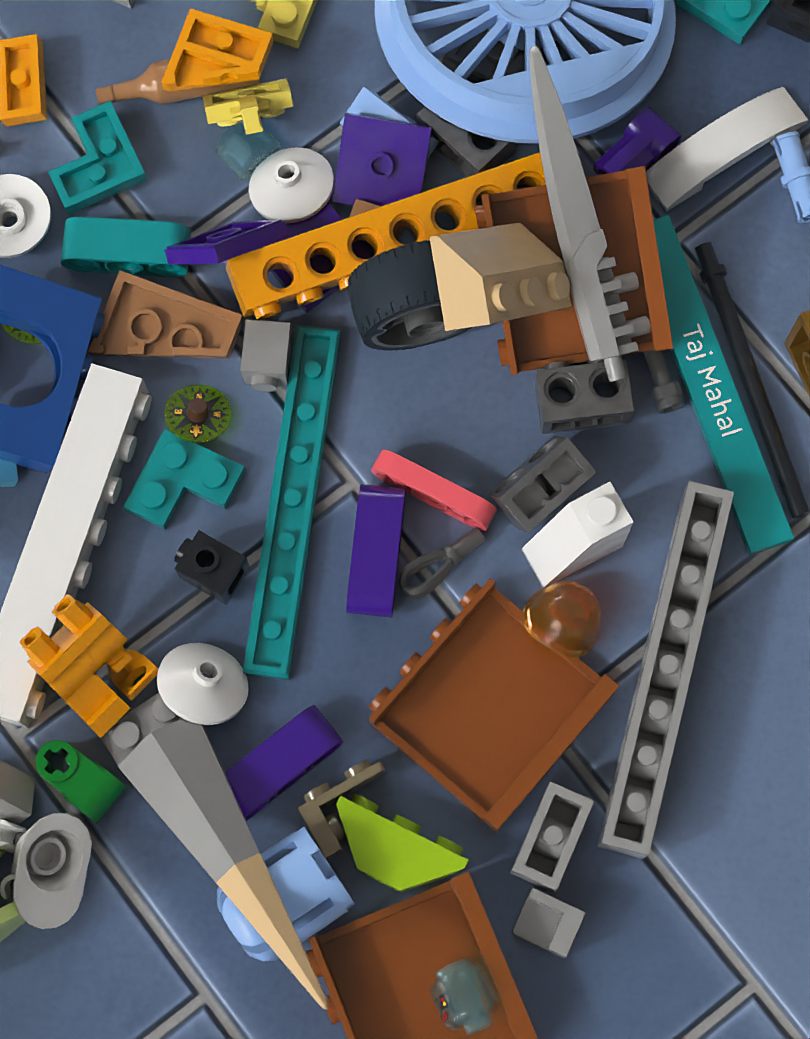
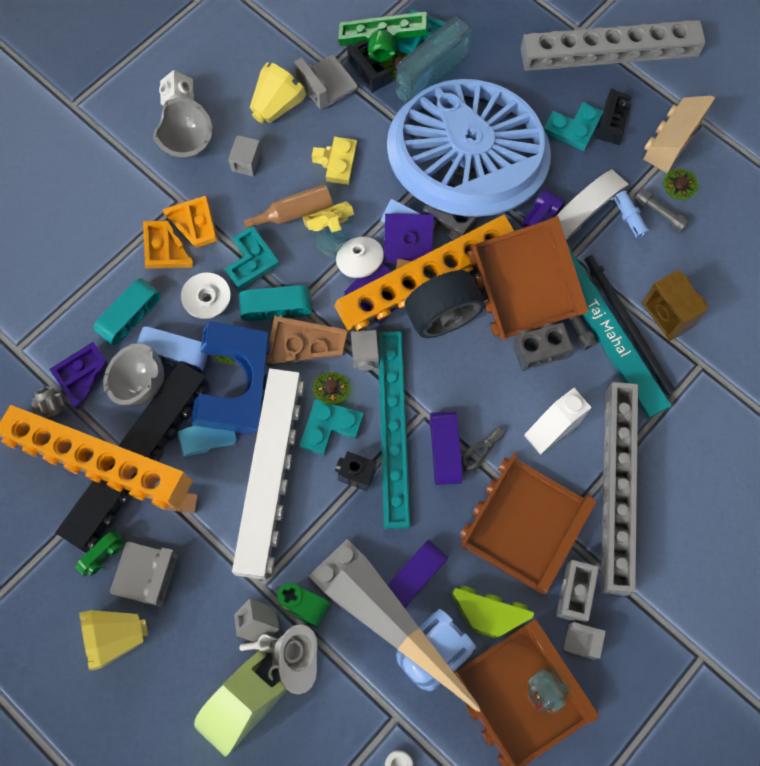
camera: 15 degrees left, 5 degrees down
(75, 655) = (288, 535): light orange hips -> none
(196, 696) = (363, 537): white dish -> none
(216, 53) = (308, 191): light orange wing -> none
(226, 242) = (333, 291): dark purple plate -> none
(327, 828) = (443, 590): dark tan bracket -> none
(434, 490) = (471, 409): coral beam -> none
(496, 276) = (490, 286): tan slope -> none
(542, 483) = (530, 396): flat silver brick -> none
(564, 618) = (556, 468): clear orange helmet -> none
(579, 235) = (530, 261): light grey piece -> none

